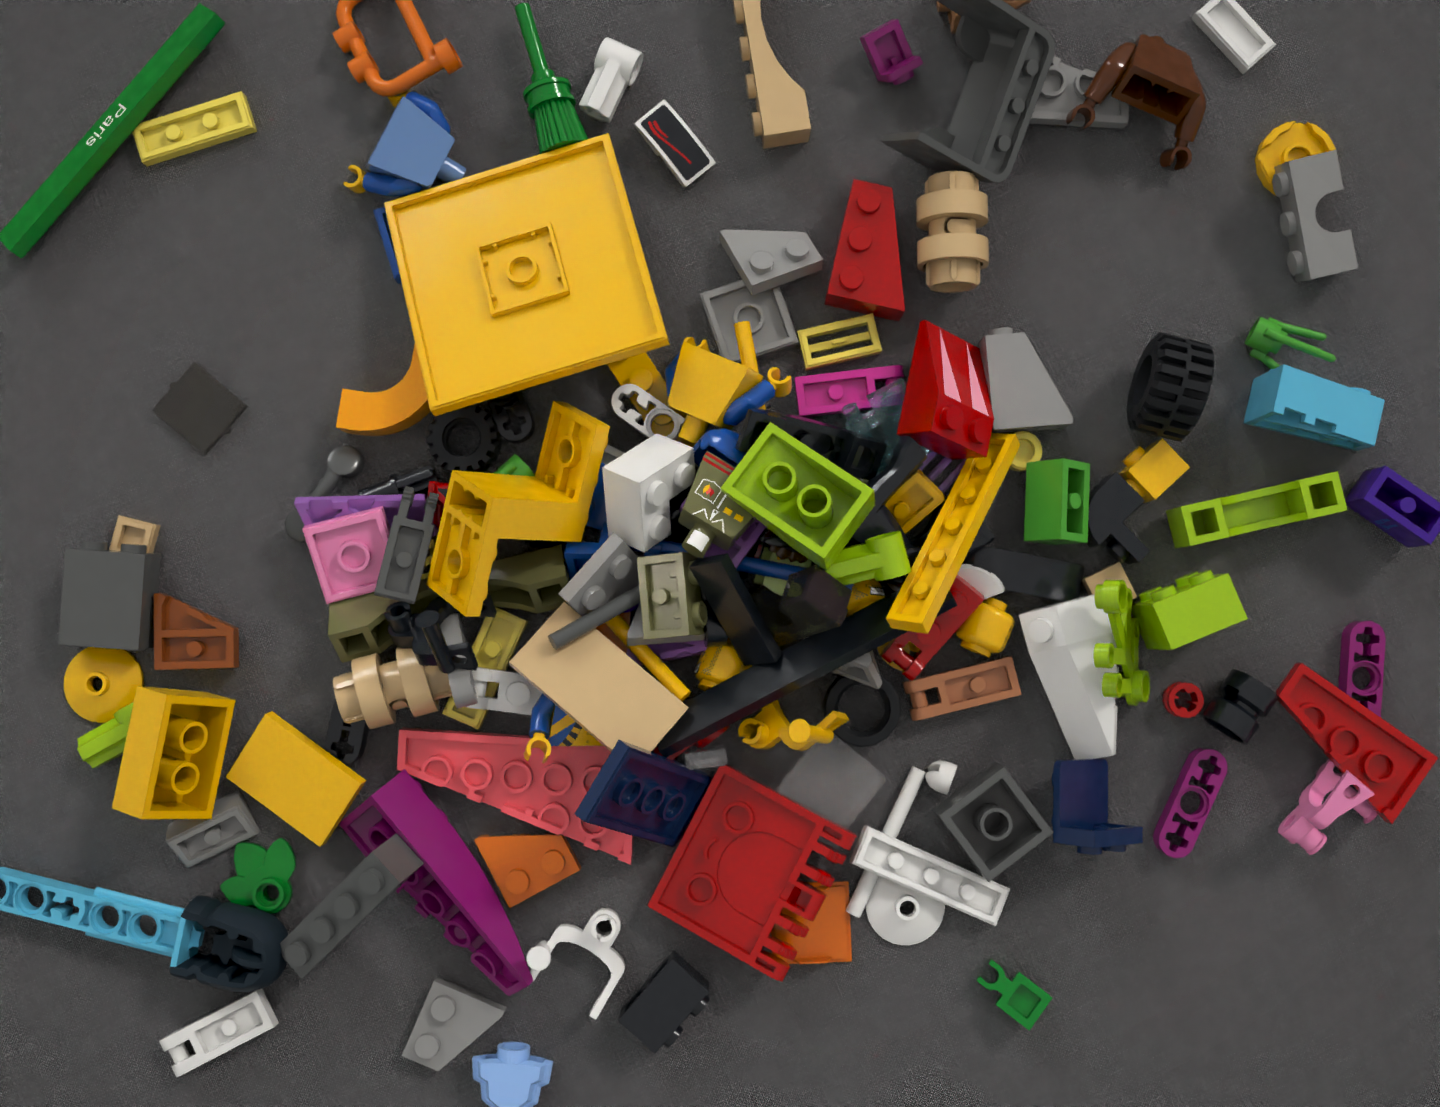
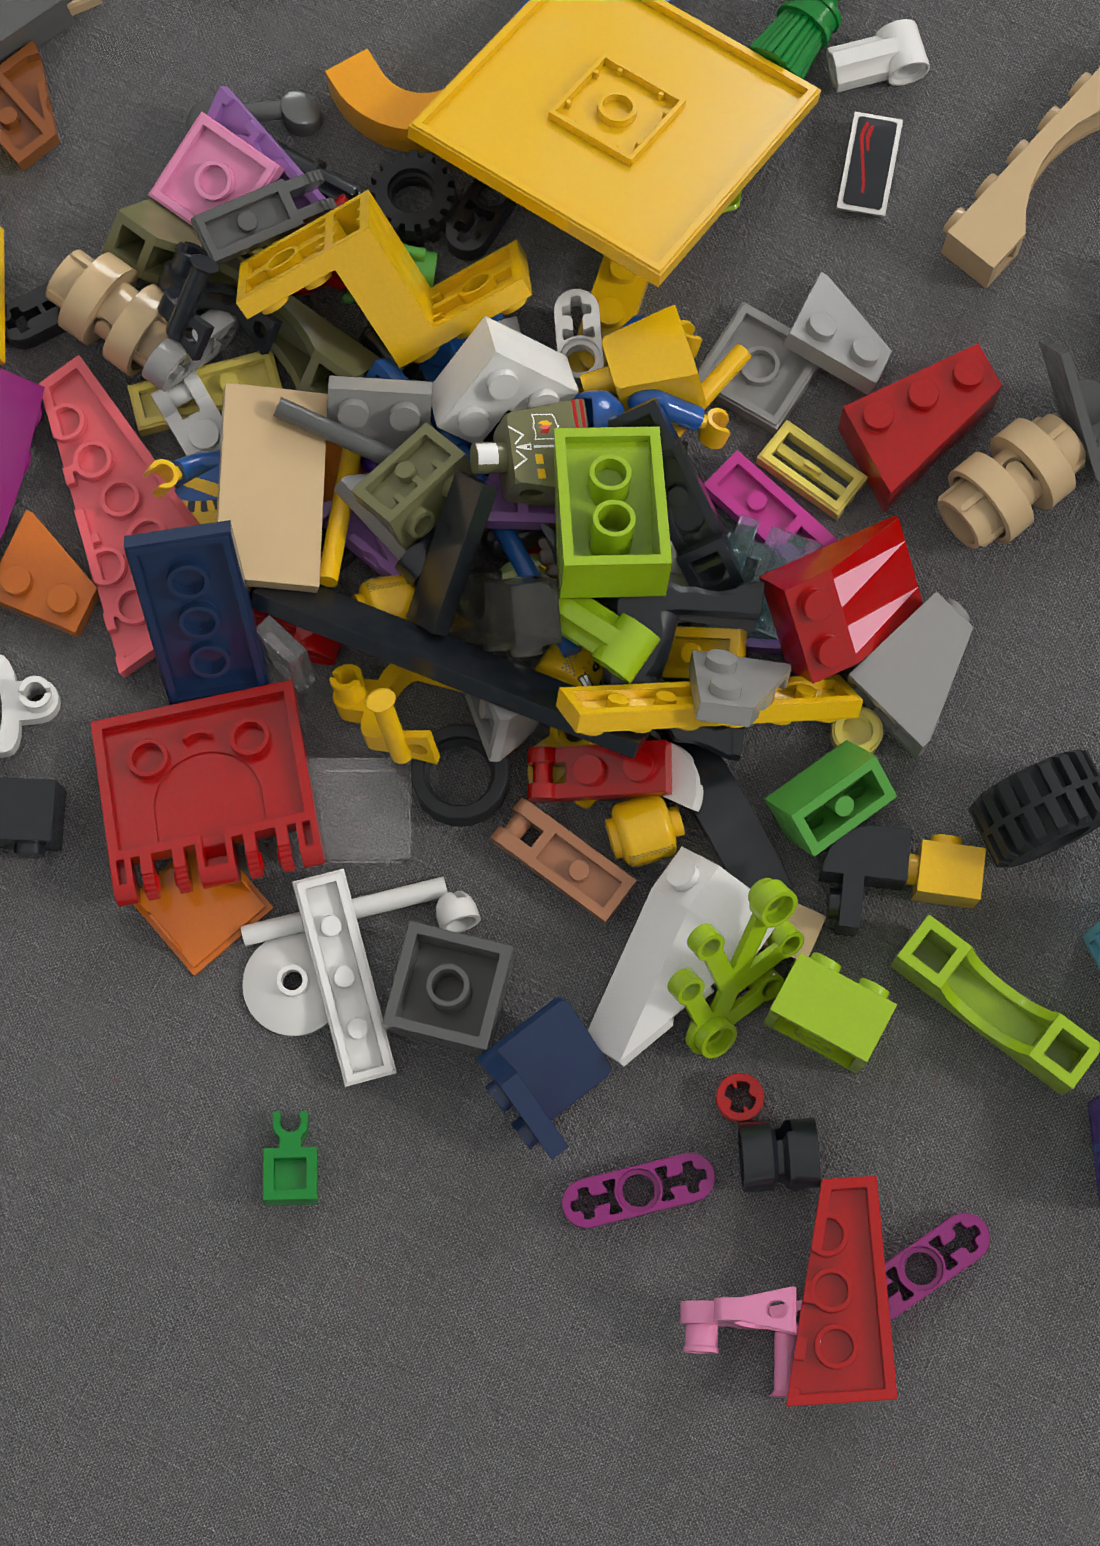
camera: 55 degrees right, 10 degrees down
(958, 510) = (733, 687): none -> light grey wing

